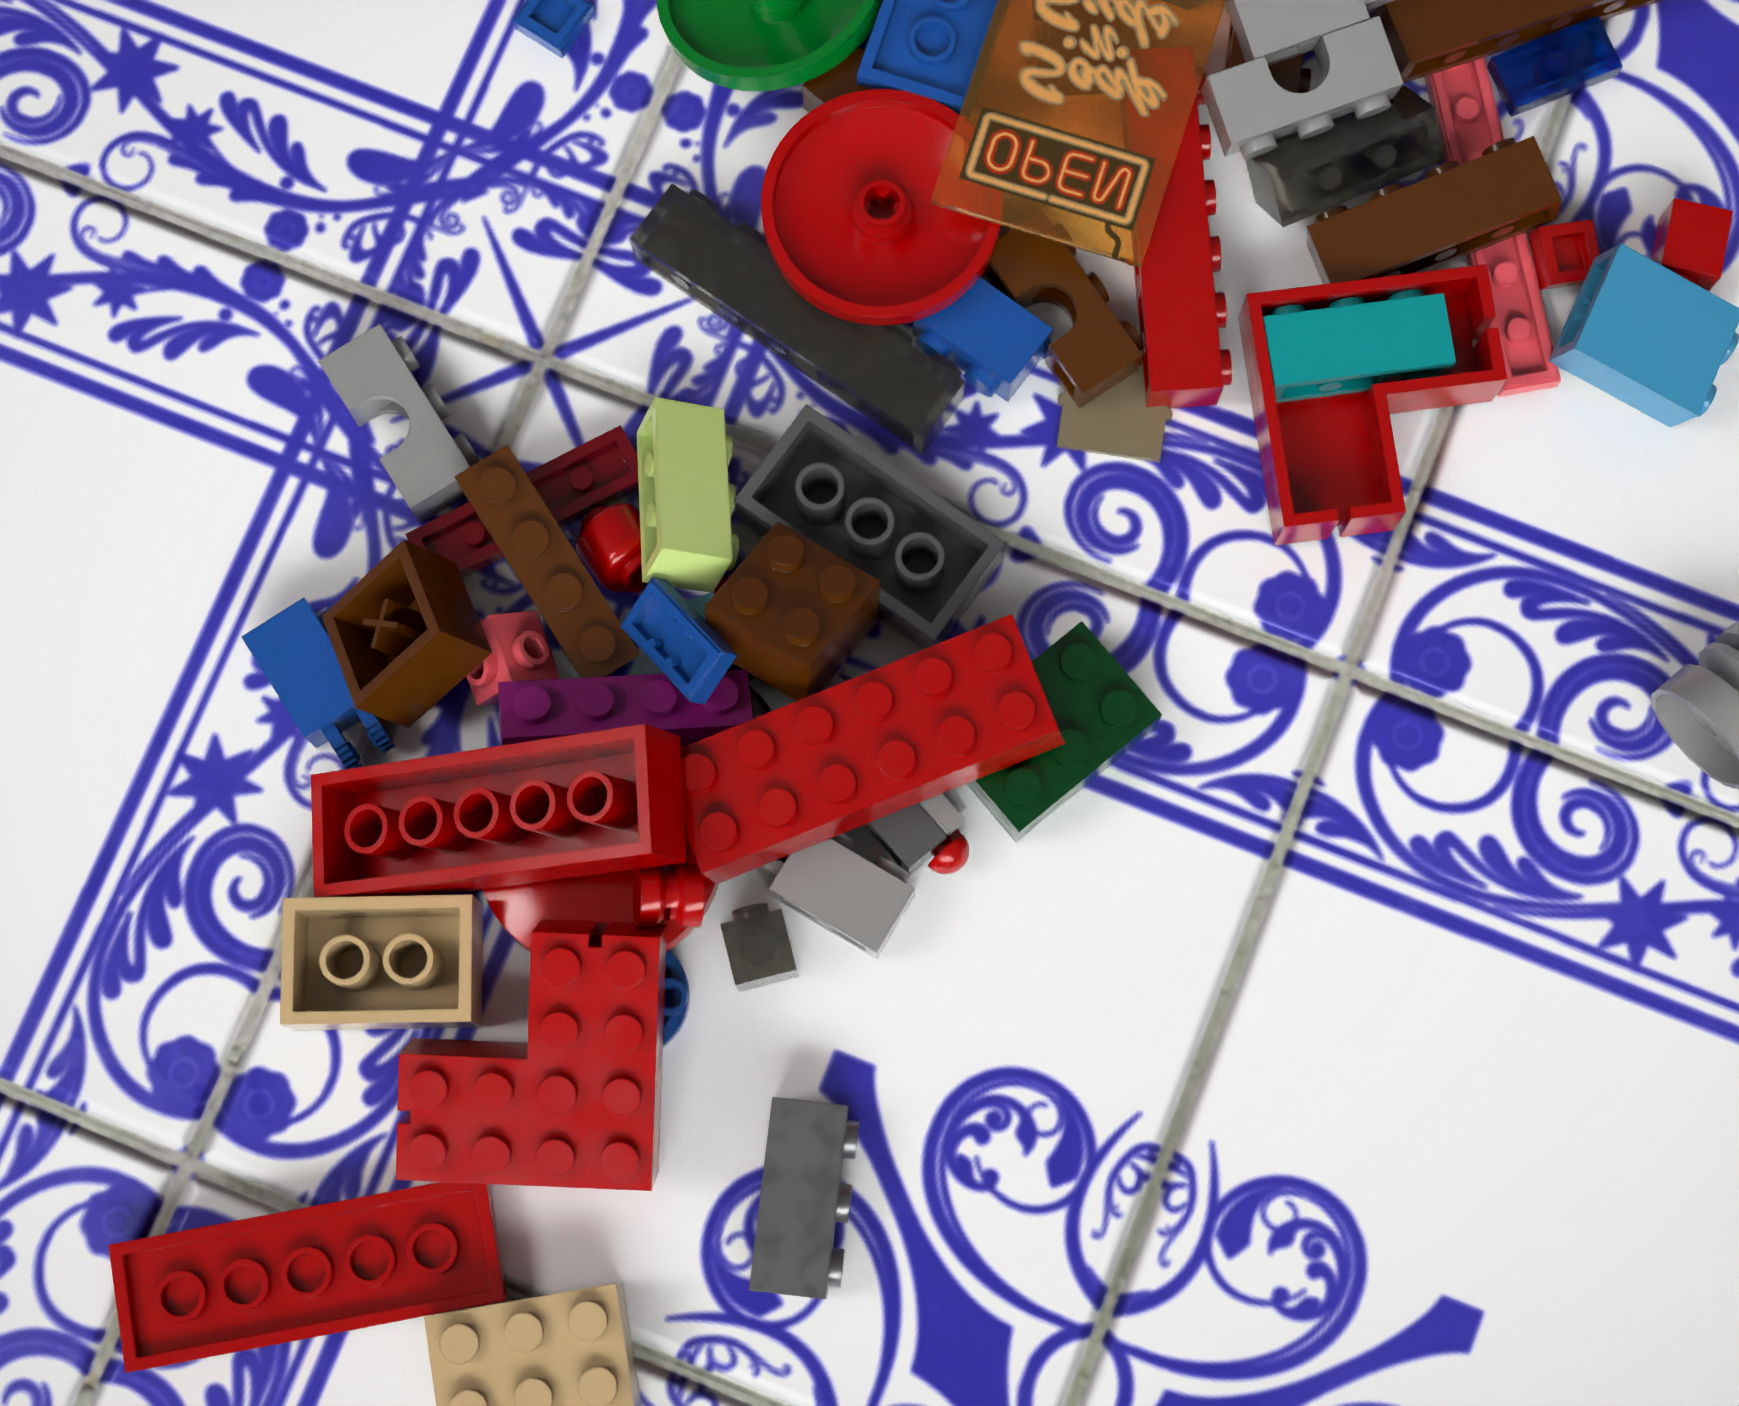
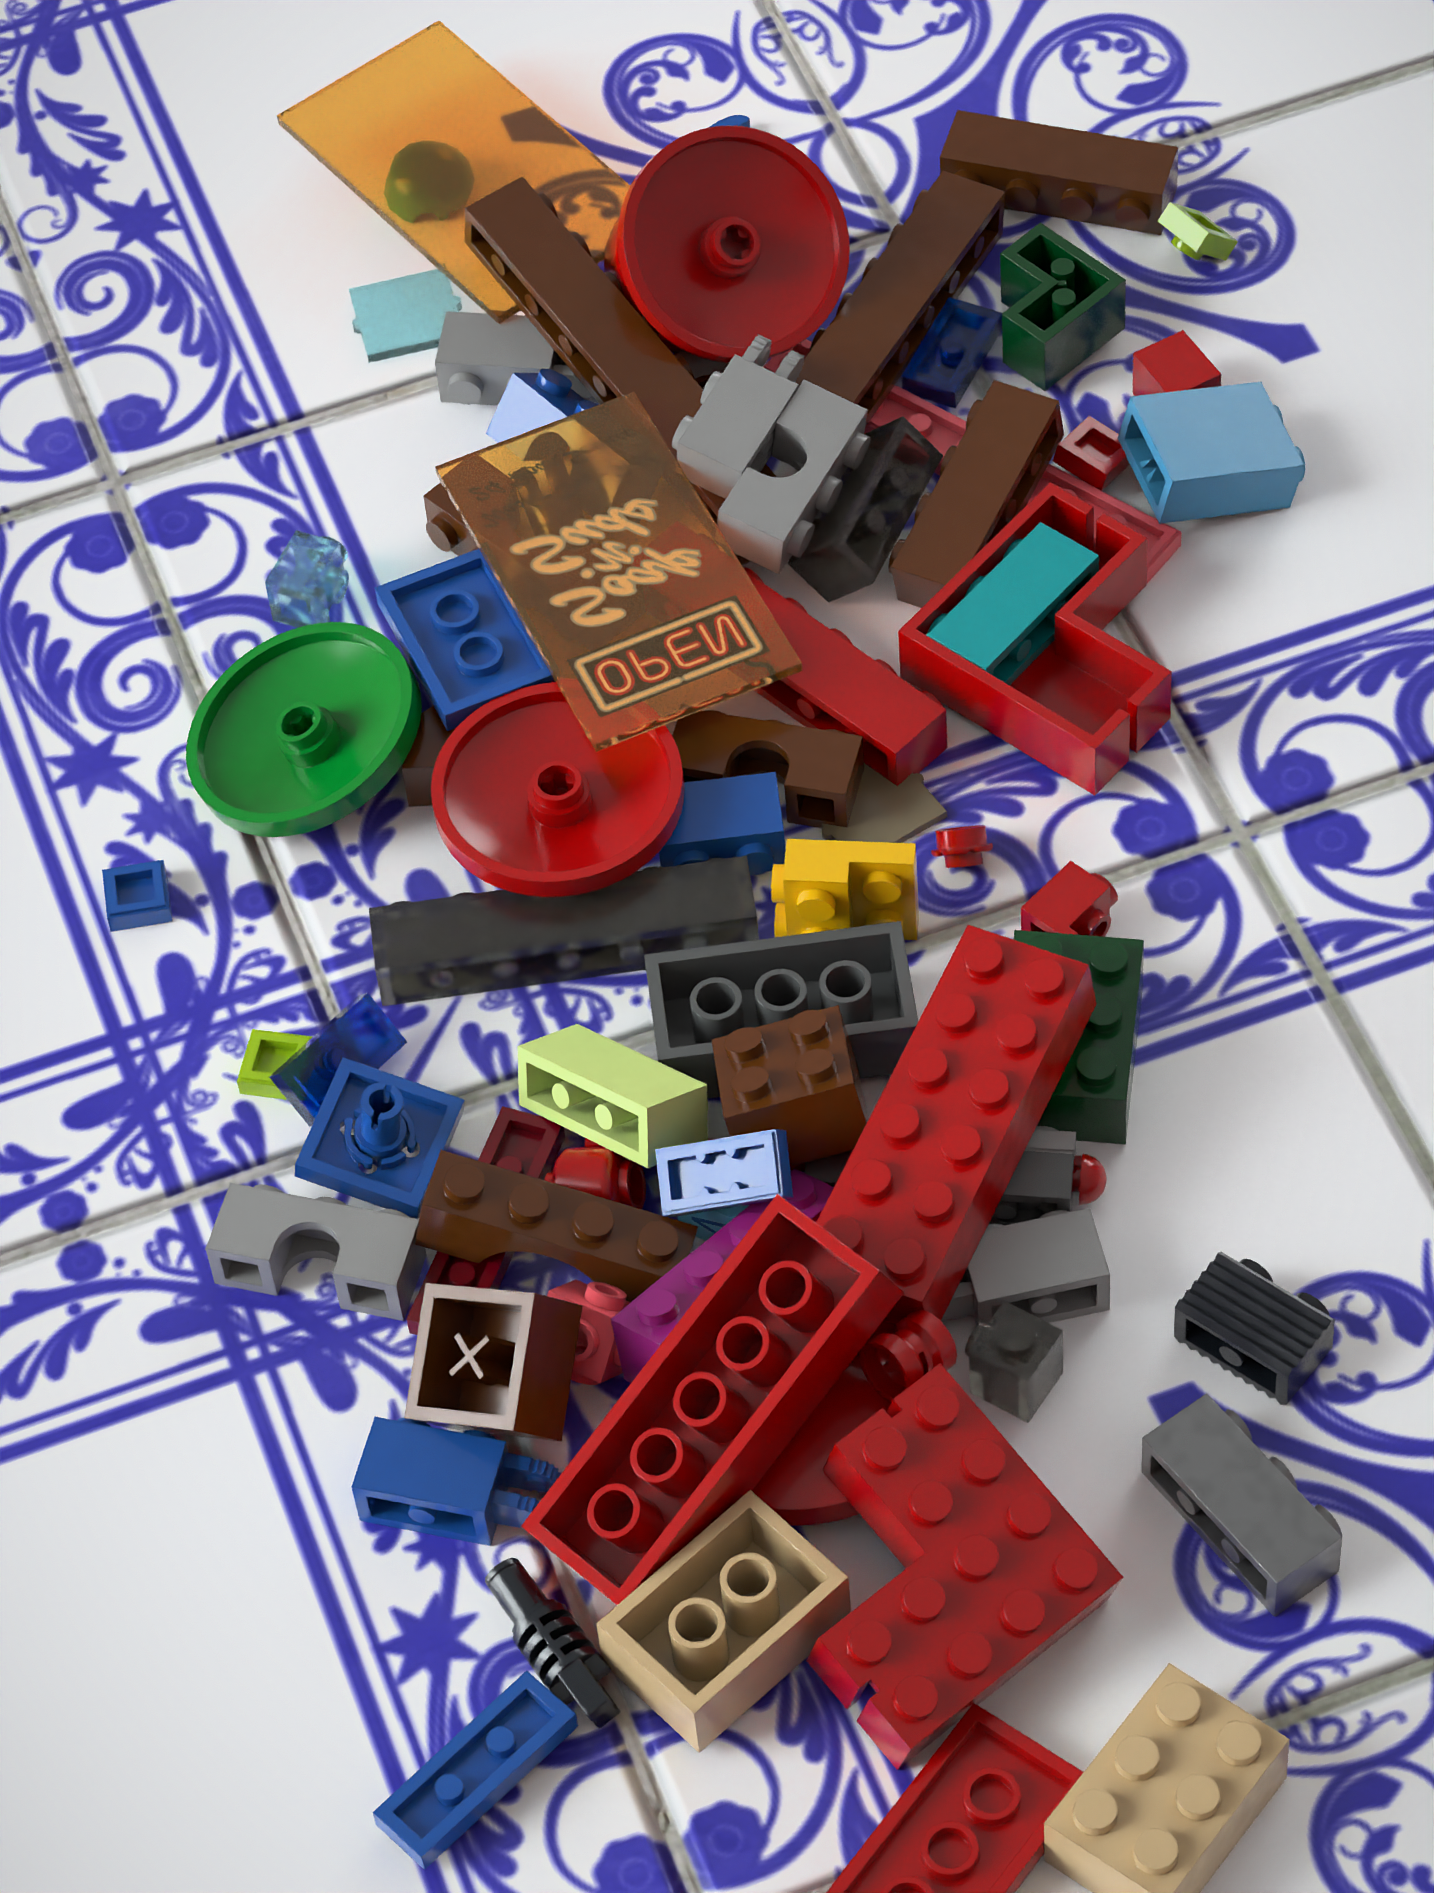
camera: 40 degrees left, 25 degrees down
(144, 910) = (475, 1769): none -> blue plate
(275, 866) = (553, 1642): none -> black hinge
(479, 361) = (385, 1119): none -> blue plate
(518, 244) = (262, 1057): none -> lime tile
(552, 282) = (357, 1033): none -> clear blue plate
(946, 1075) = (1254, 1326): none -> black brick
(987, 469) = (845, 886): none -> yellow plate
(1135, 503) = (962, 845): none -> red plate
(1150, 632) = (1071, 904): none -> red brick
(1673, 108) = (1058, 306): none -> dark green brick

